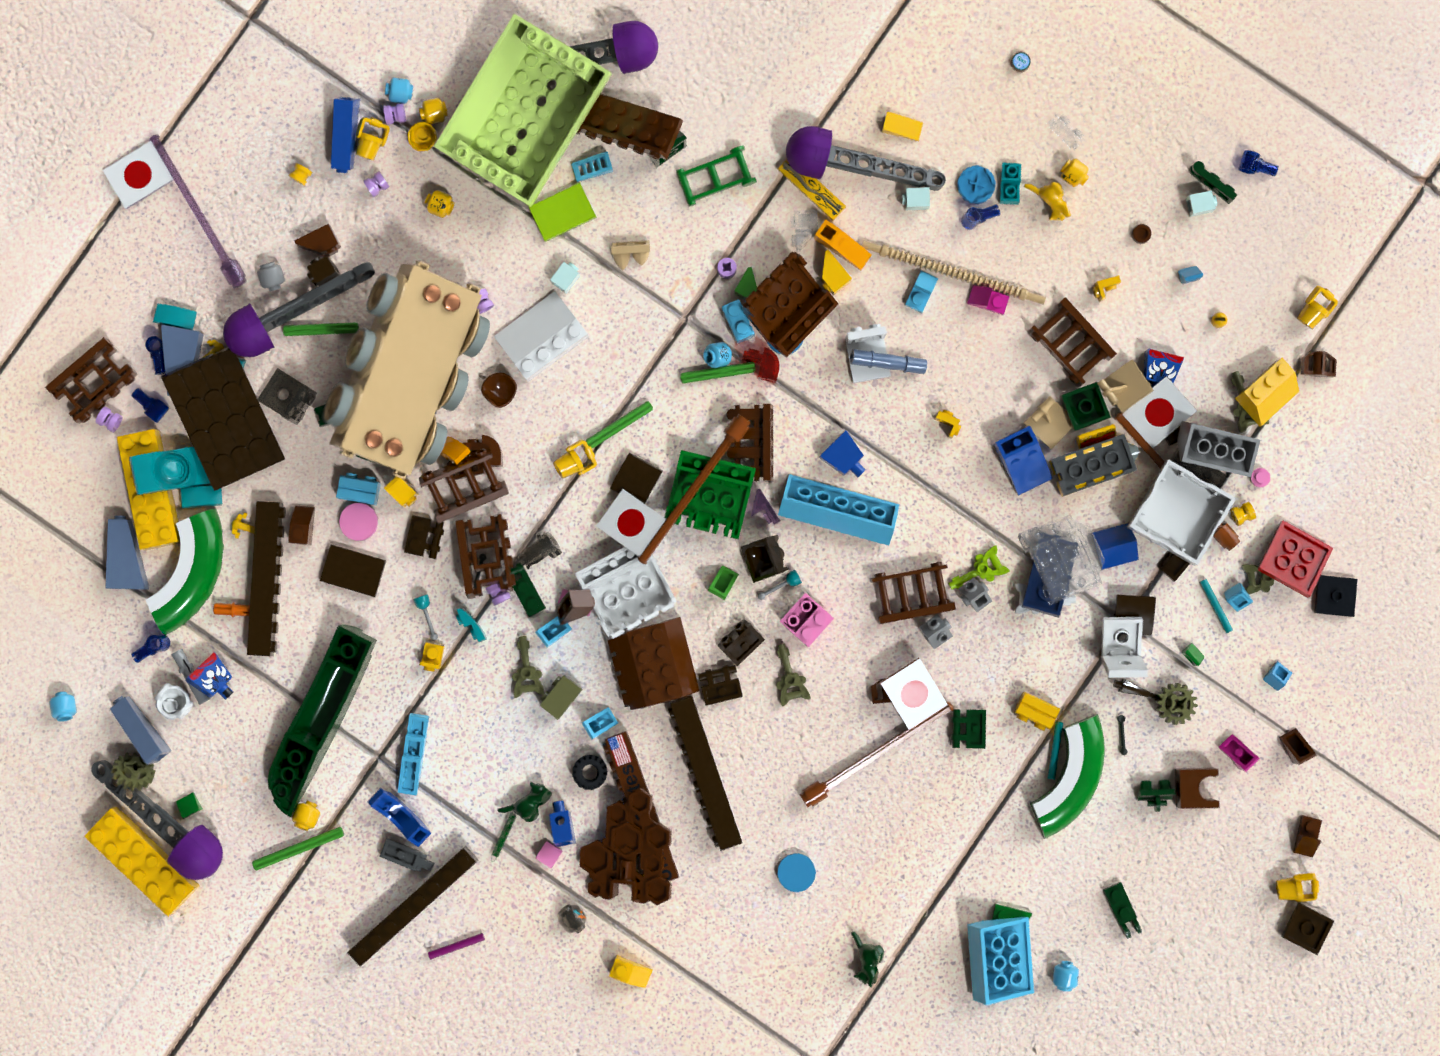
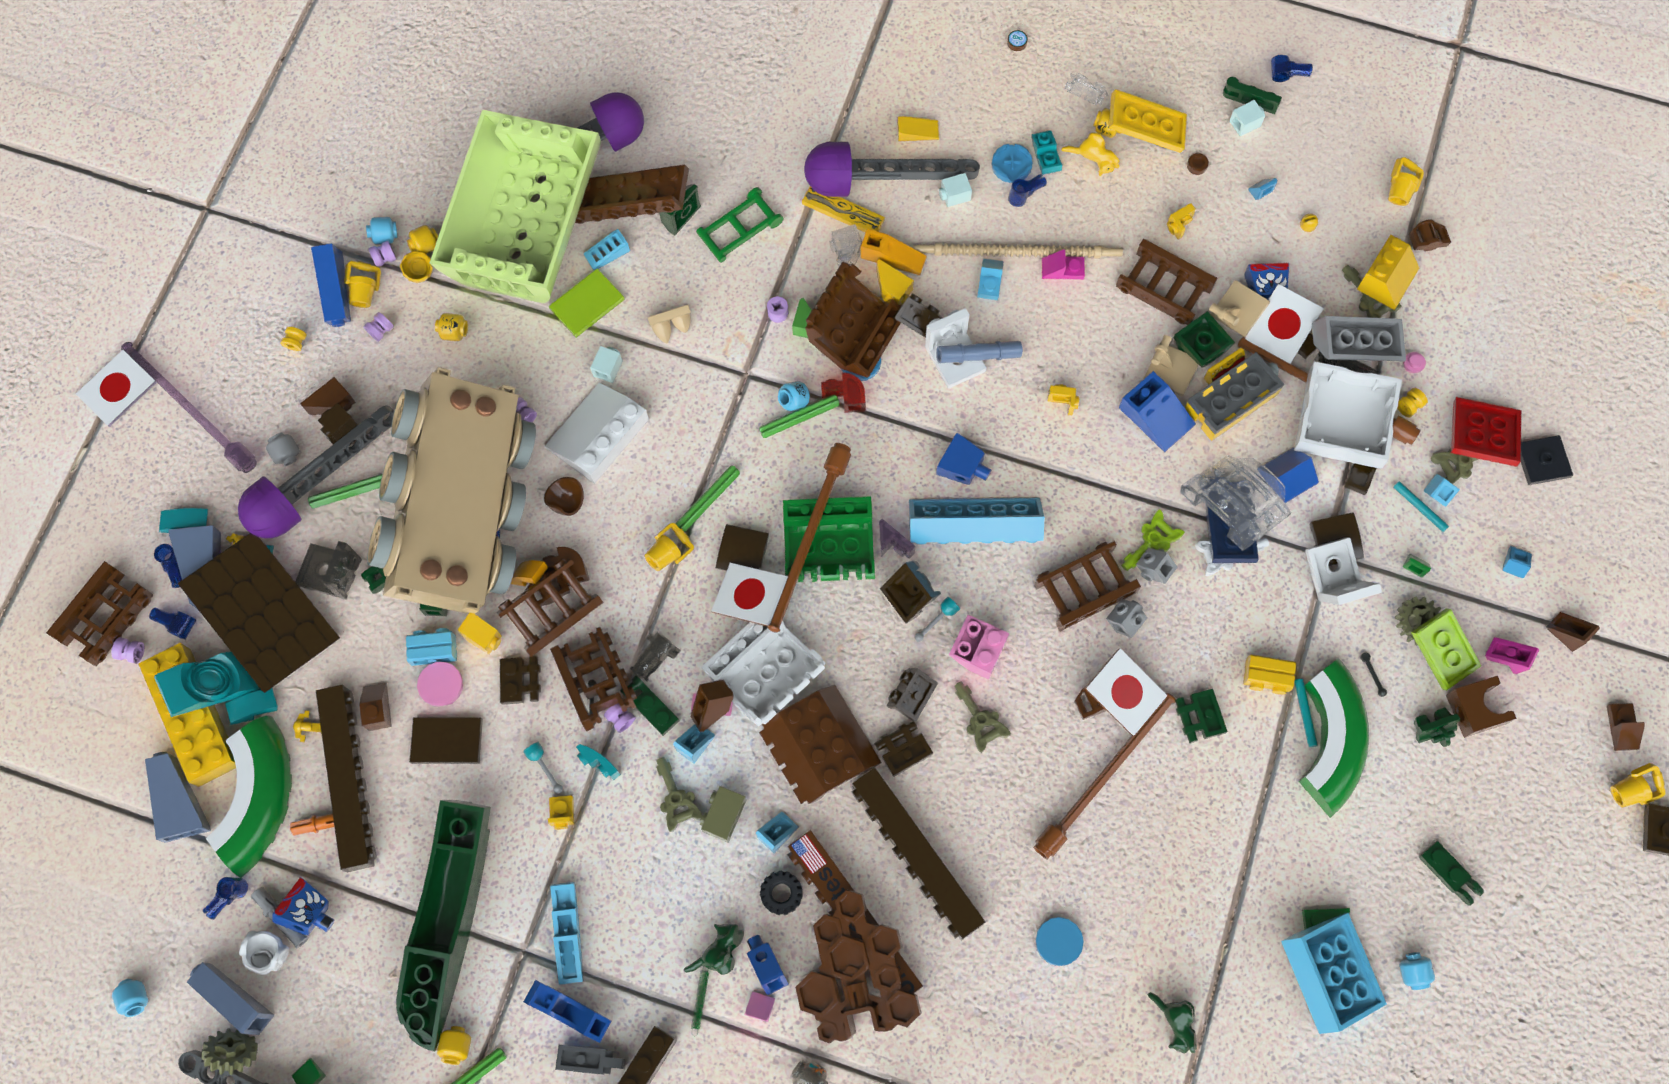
camera: 15 degrees left, 15 degrees down
(723, 582) = (871, 635): bright green slope -> none
(738, 321) = (805, 357): medium azure brick -> none
(756, 433) = (860, 466): reddish brown fence -> none
(846, 311) = (915, 314): none -> dark brown bracket
(1108, 183) = (1147, 121): none -> yellow plate
(1130, 688) = (1360, 620): dark brown piece -> none
(1187, 733) = (1446, 649): none -> lime tile

